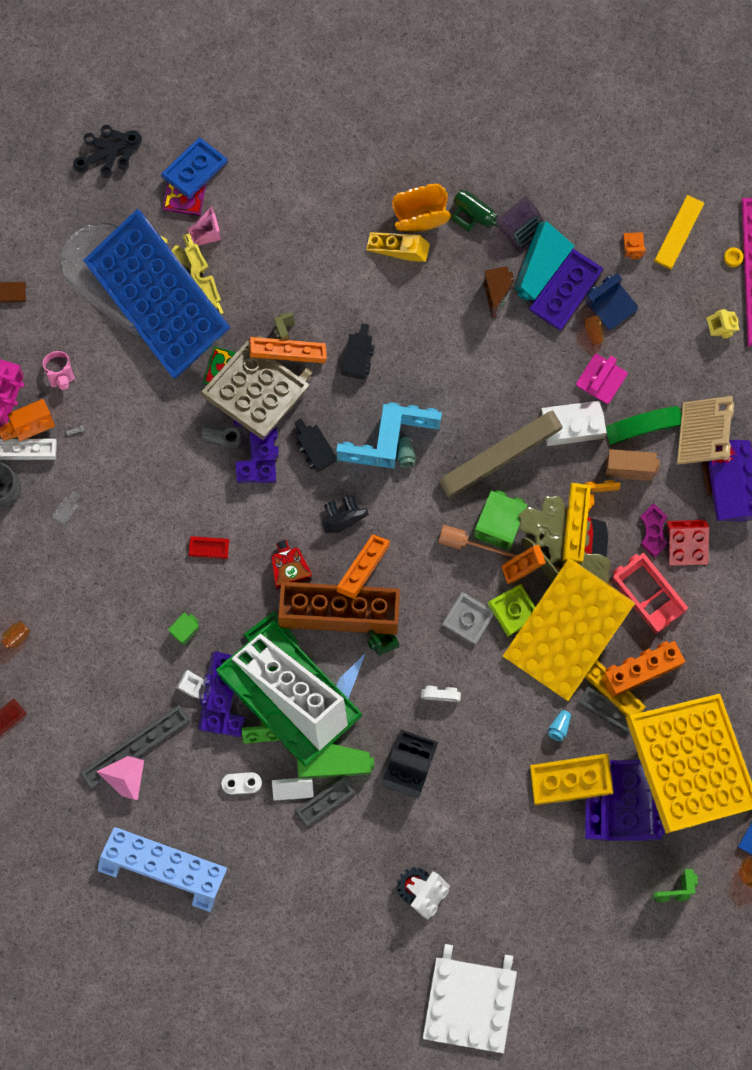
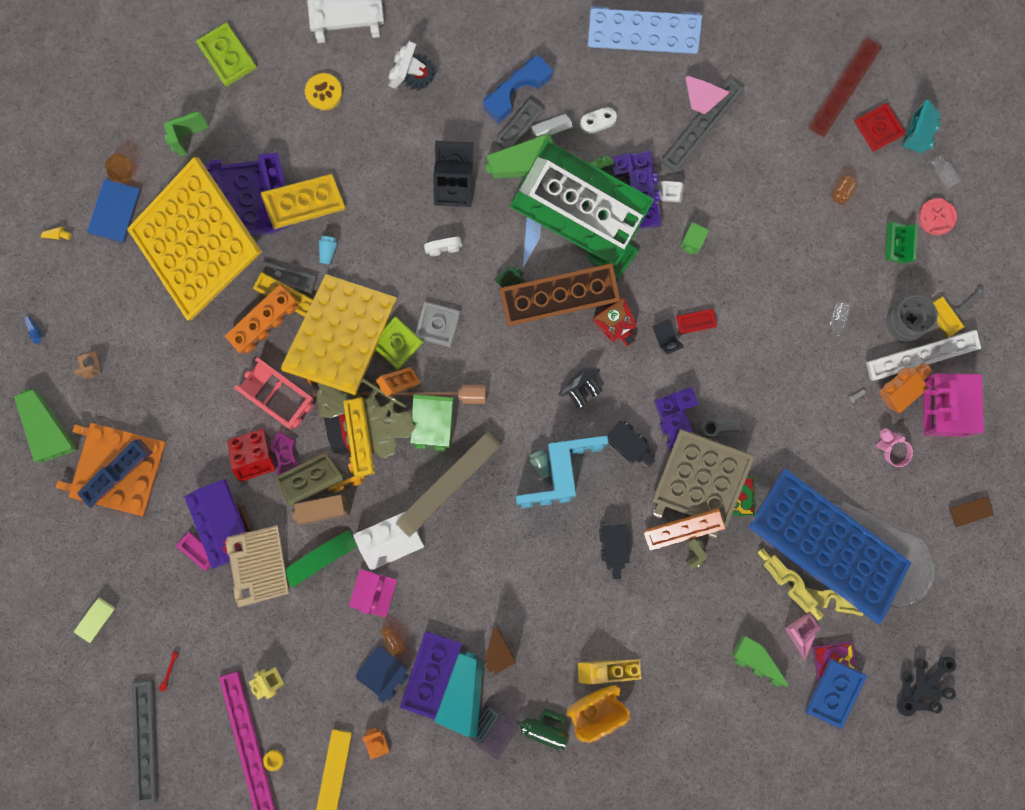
camera: 165 degrees right, 5 degrees up
(243, 537) = (666, 337): none -> black bracket
(259, 221) = (754, 655): none -> bright green slope
(293, 851) = (534, 73): none -> blue arch
(363, 566) = (548, 338): orange plate -> none
(520, 898) = (323, 91): none -> yellow tile
(613, 970) = (226, 54): none -> lime tile
(636, 498) = (308, 479): none -> olive plate

